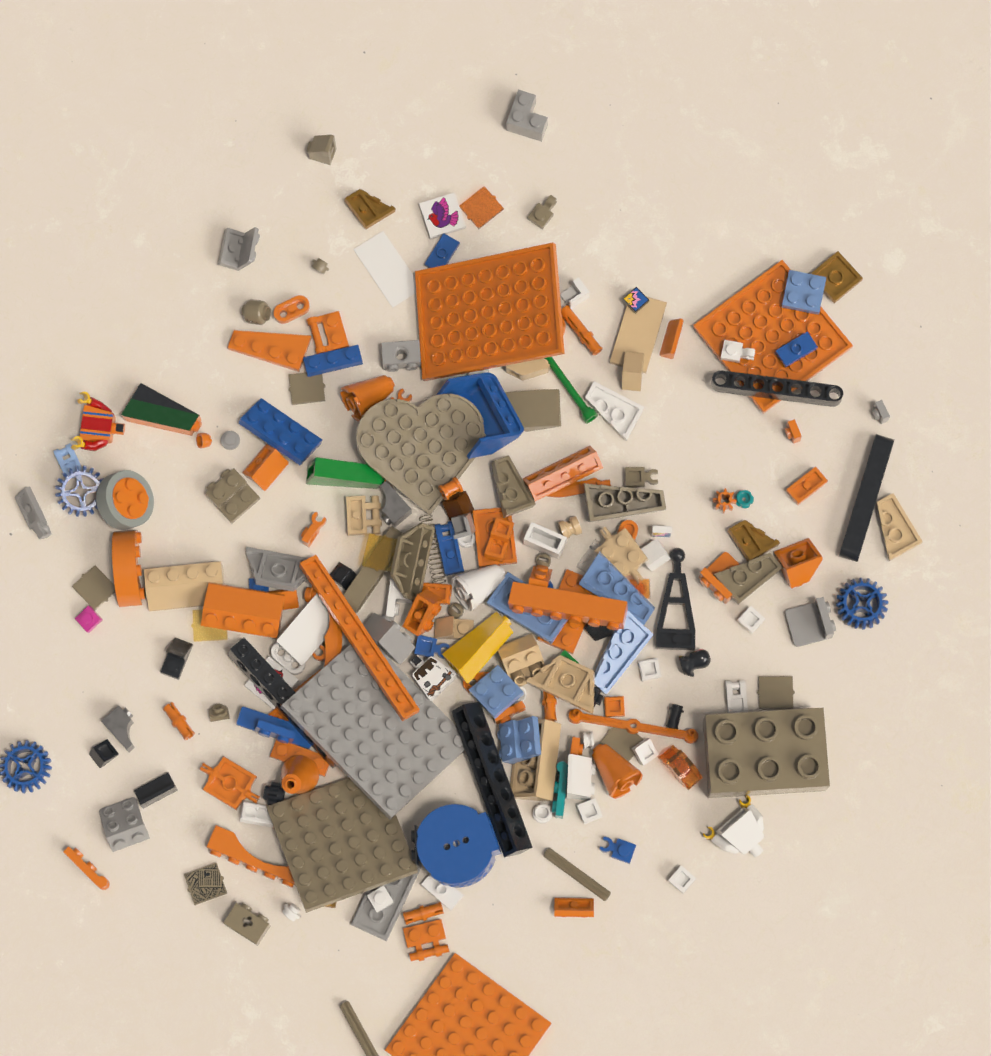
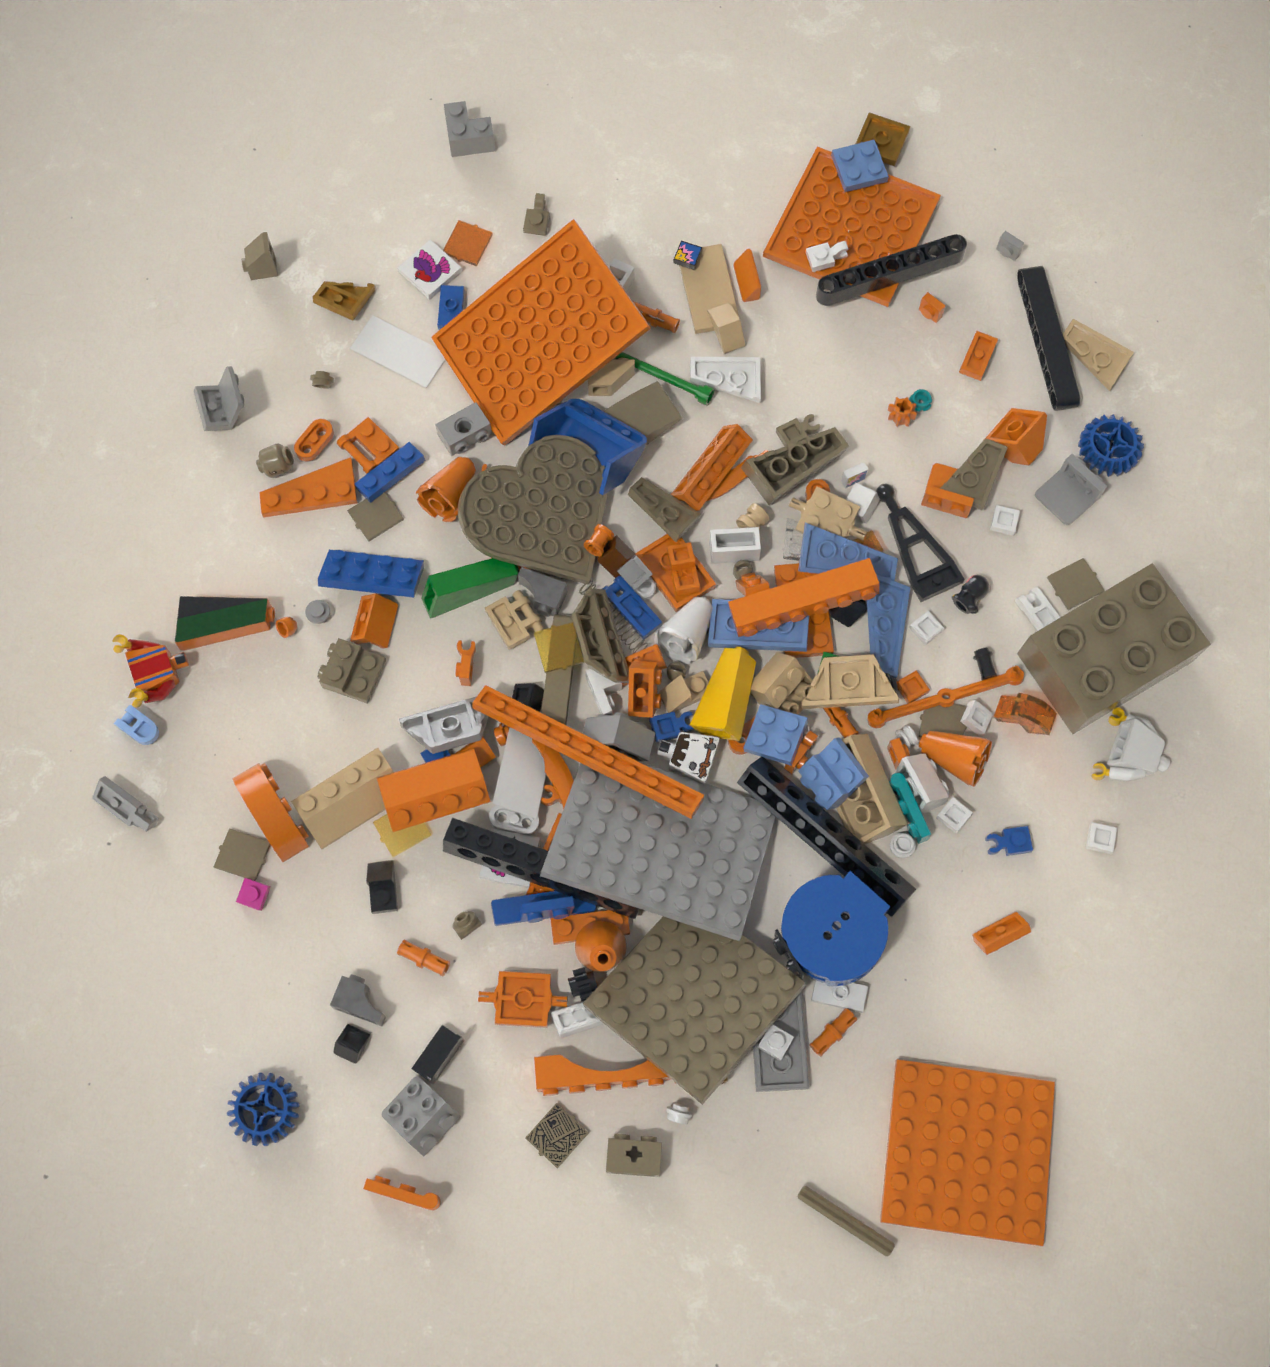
camera: 30 degrees left, 5 degrees down
(68, 492) = (157, 733): gear -> none
(125, 500) = (227, 733): wheel -> none
(425, 934) = (849, 1056): orange plate -> none
(577, 874) = (981, 894): dark tan axle -> none
(751, 540) = (954, 438): pearl gold wing -> none
(796, 349) = (886, 224): blue plate -> none

